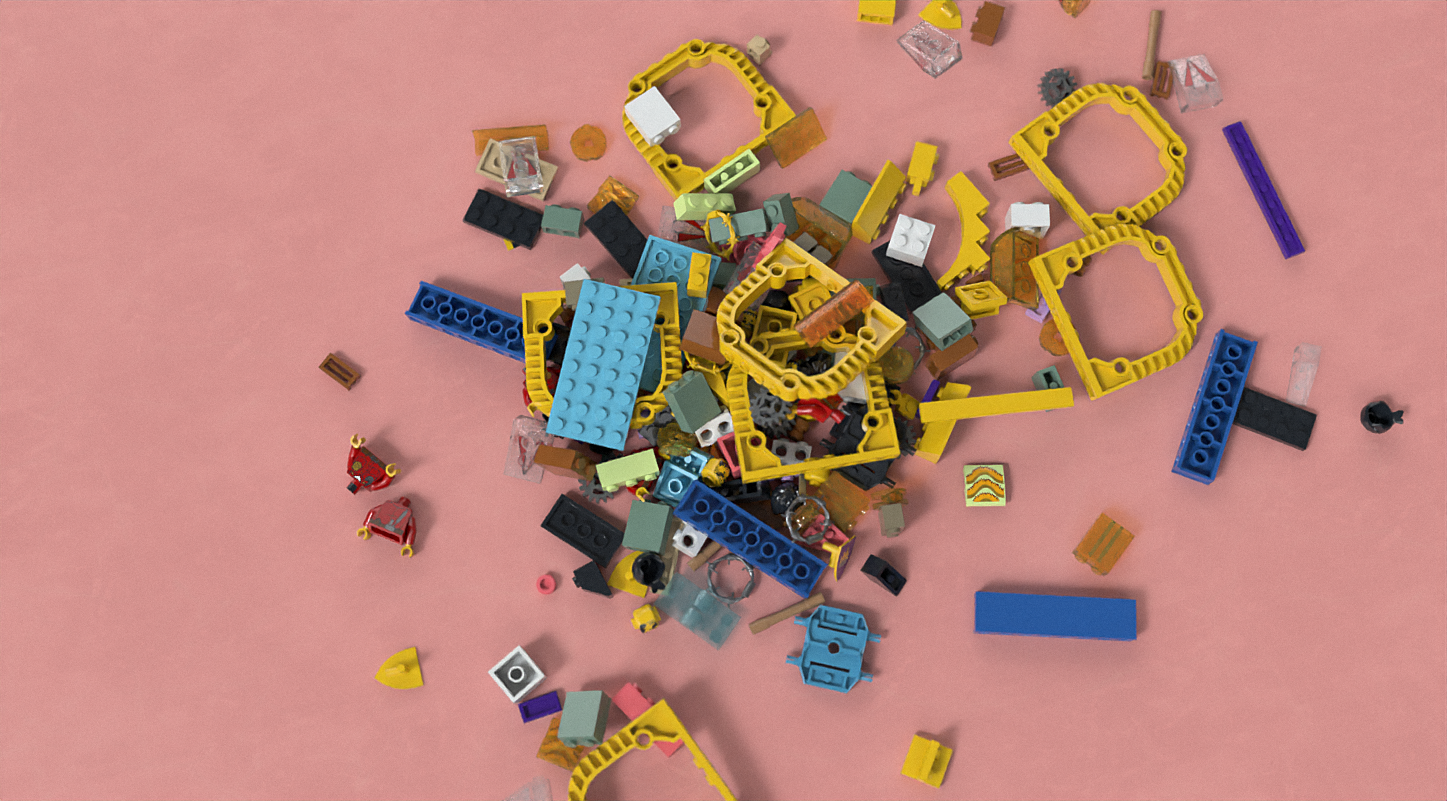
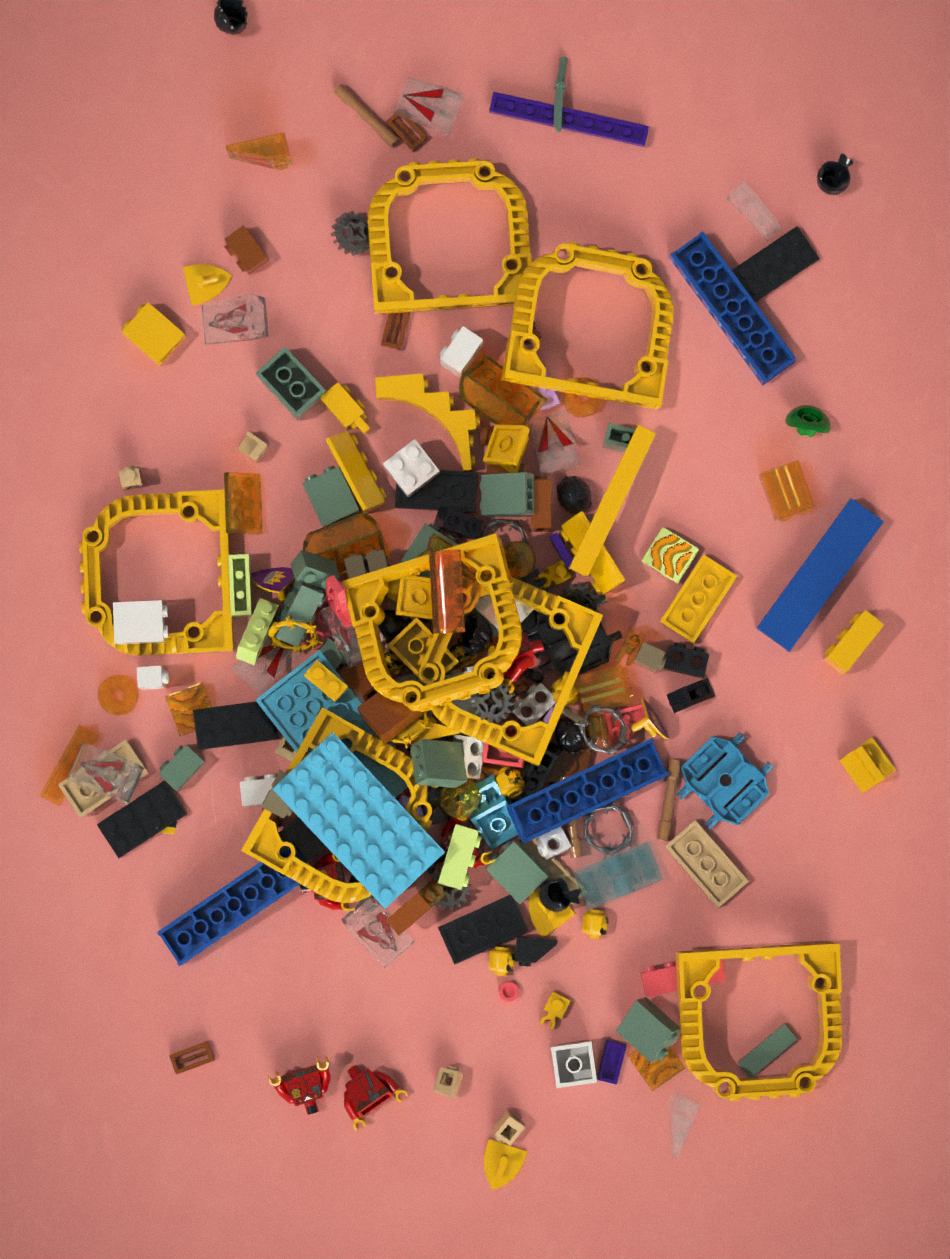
camera: 60 degrees left, 10 degrees up
(439, 657) = (512, 1132): none -> tan brick
(441, 582) = (444, 1075): none -> tan brick
(557, 631) = (555, 1007): none -> yellow plate
(566, 561) = (501, 960): none -> yellow head
(617, 154) = (152, 677): none -> white brick
(752, 196) = (274, 580): none -> dark purple shield
(754, 678) = (706, 864): none -> tan plate
(813, 439) = (533, 675): none -> black tile
(844, 121) = (253, 447): none -> tan panel
(904, 554) = (685, 666): none -> black brick
(911, 114) = (290, 383): none -> sand green brick
(965, 531) = (698, 599): none -> yellow plate
(979, 377) = (574, 495): none -> black hair
(1006, 338) = (553, 443): none -> clear slope
(1020, 678) = (852, 641): none -> yellow brick
(1171, 525) = (808, 420): none -> green hat
(1282, 167) = (560, 86): none -> sand green sword

